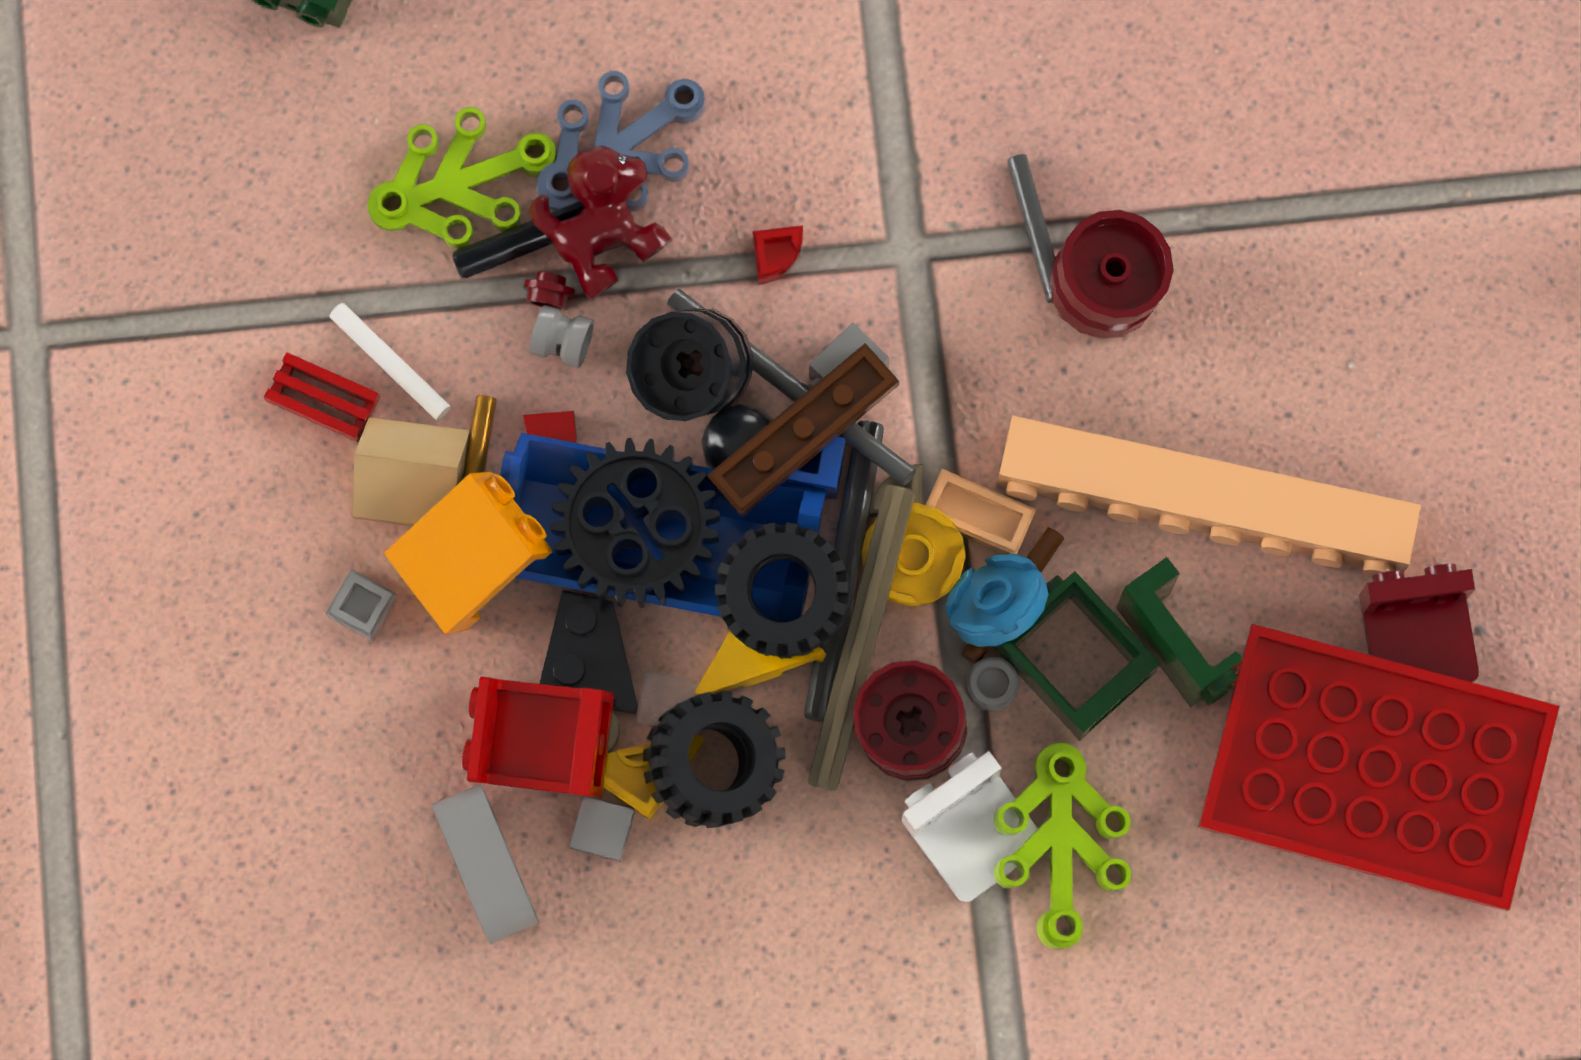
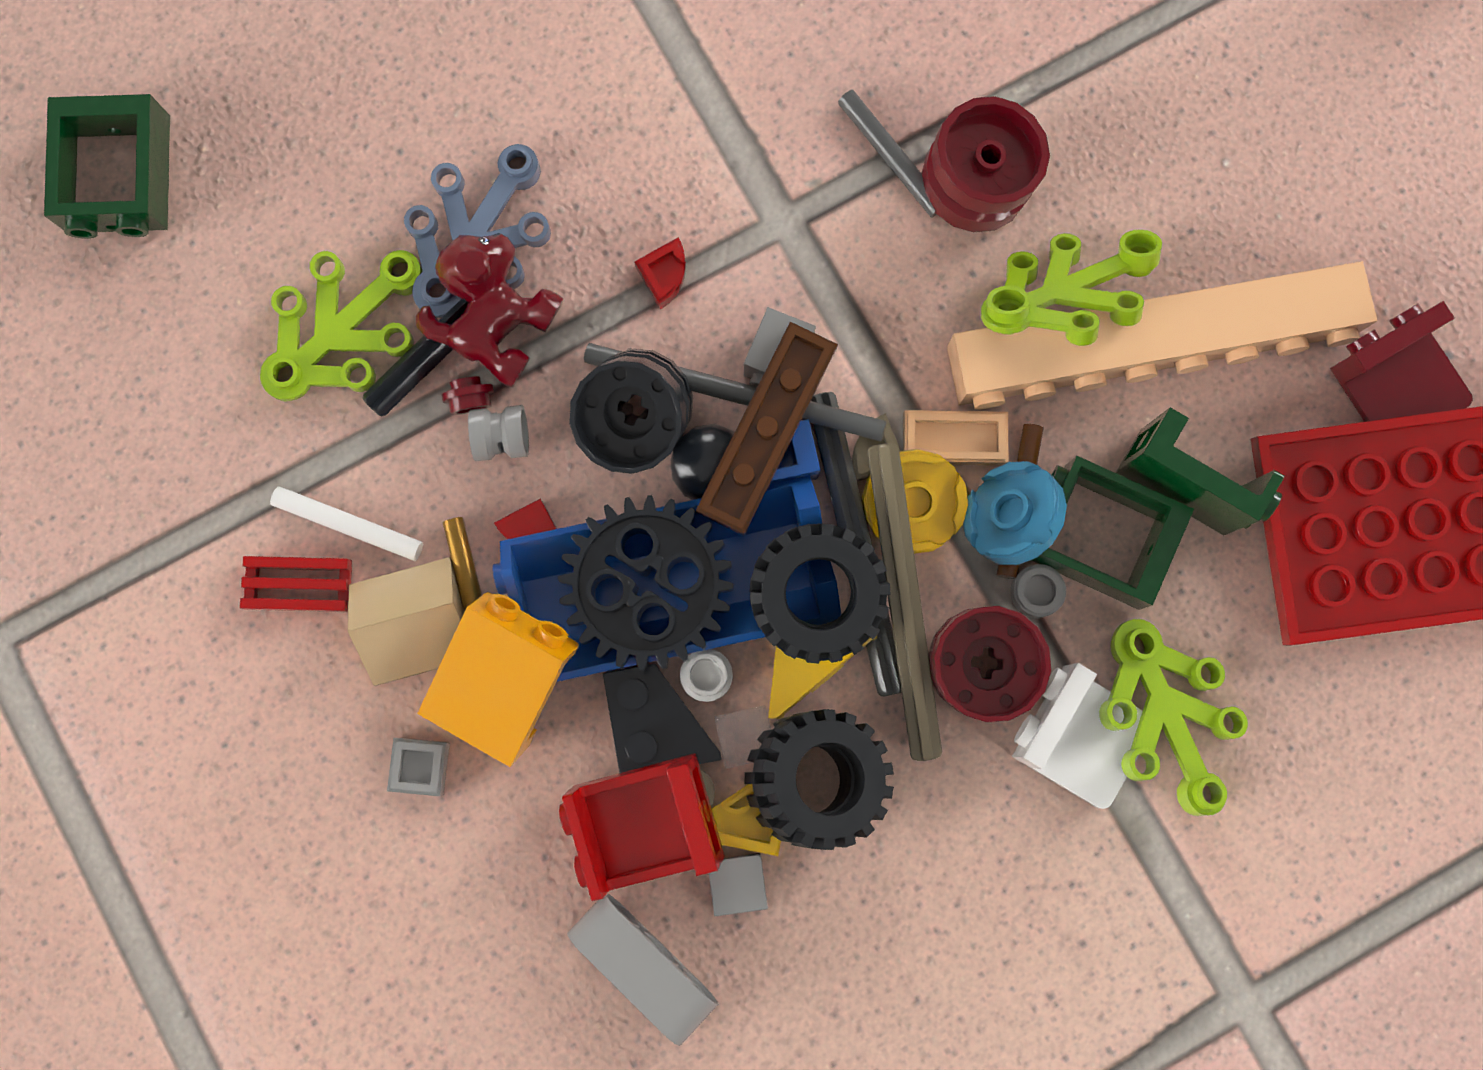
camera: 25 degrees left, 5 degrees up
(655, 631) = (706, 675): none -> white plate
(1075, 414) = (1012, 309): none -> lime plant

